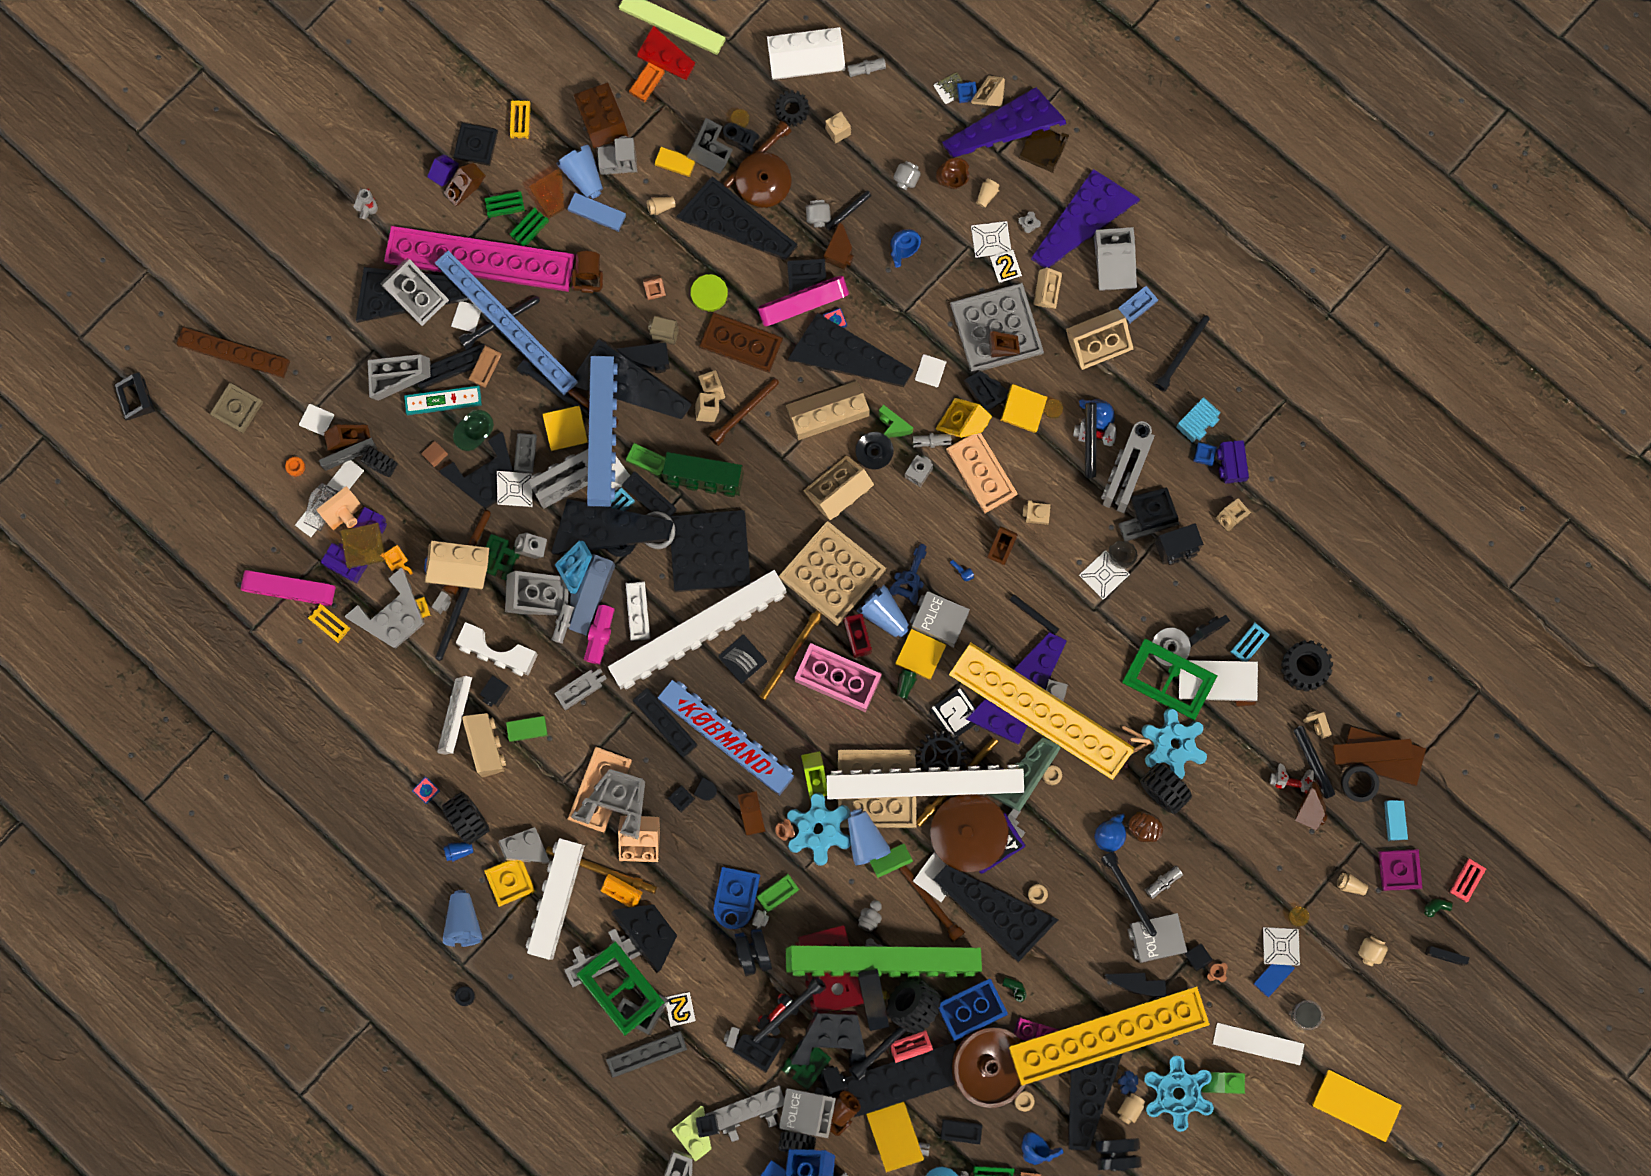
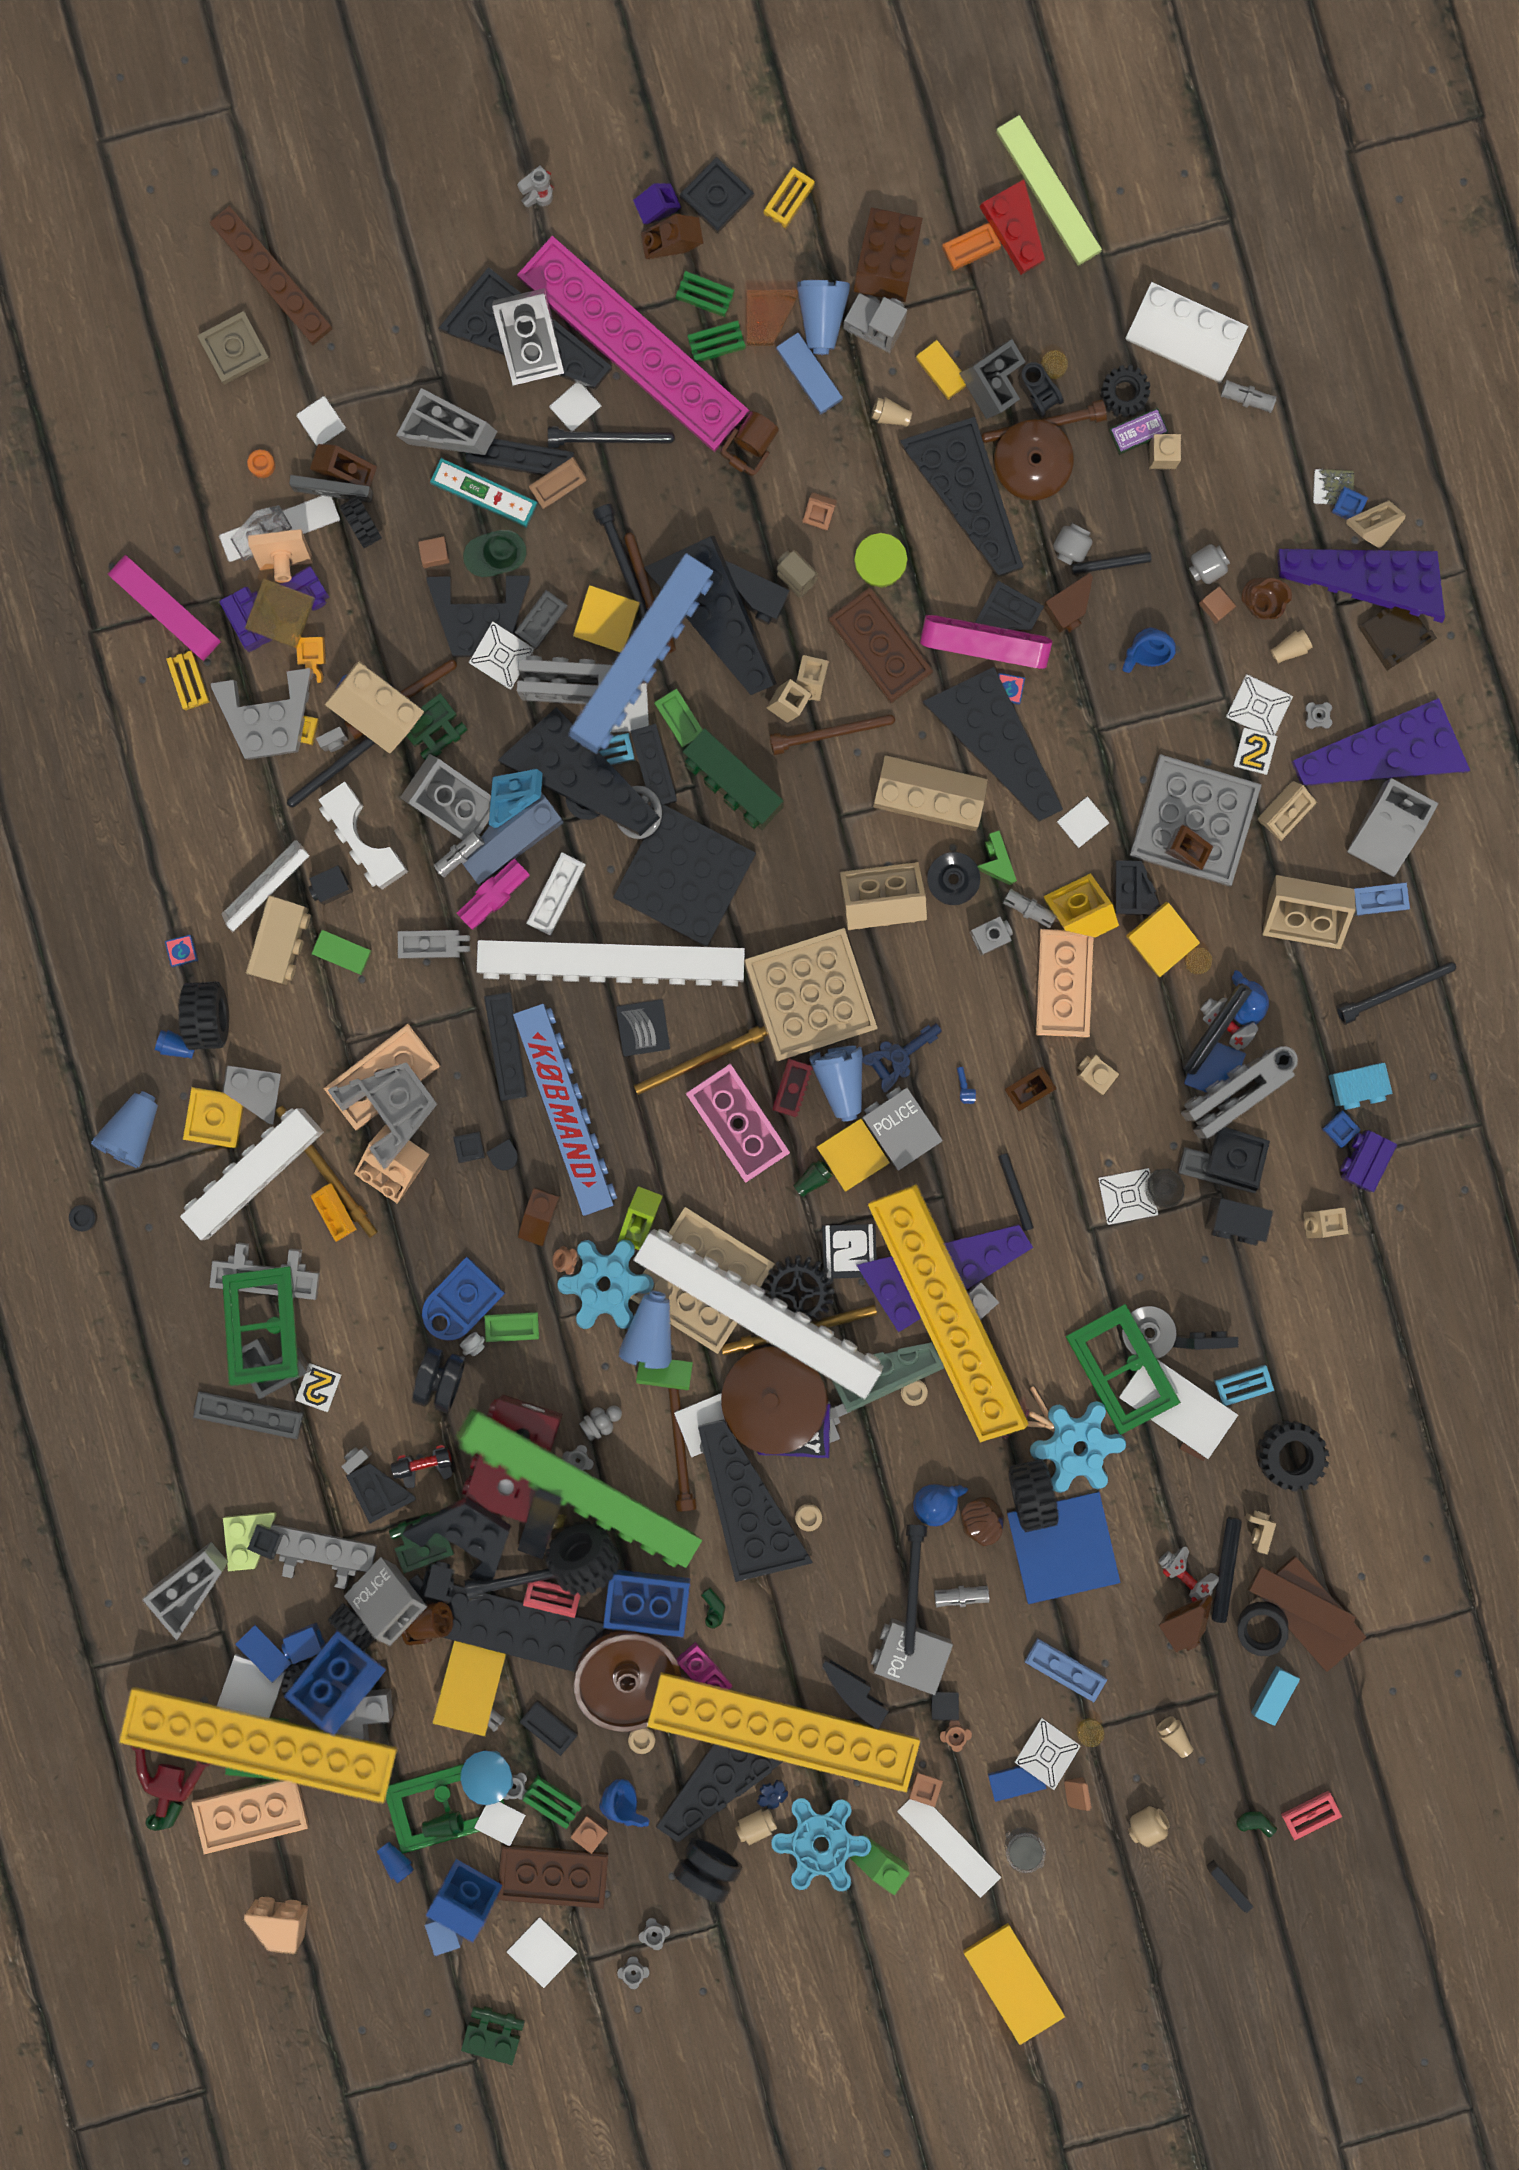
camera: 25 degrees right, 10 degrees up
(144, 396) = (133, 261): black tile -> none
(506, 323) = (614, 444): medium blue plate -> none
(530, 545) = (477, 737): light grey brick -> none
(648, 932) = (334, 1279): black wing -> none
(814, 126) = (1137, 431): none -> medium lavender tile
(815, 986) = (479, 1471): black piece -> none
(927, 196) = (1217, 604): none -> nougat slope
(1104, 464) = (1215, 1067): none -> blue sticker
(1209, 815) = (1066, 1556): none -> blue piece
(1220, 1017) = (925, 1789): none -> nougat plate
(1257, 887) = (1065, 1670): none -> medium blue tile
(1316, 959) = (1077, 1794): none -> nougat slope
(1400, 870) = (1242, 1754): magenta tile -> none

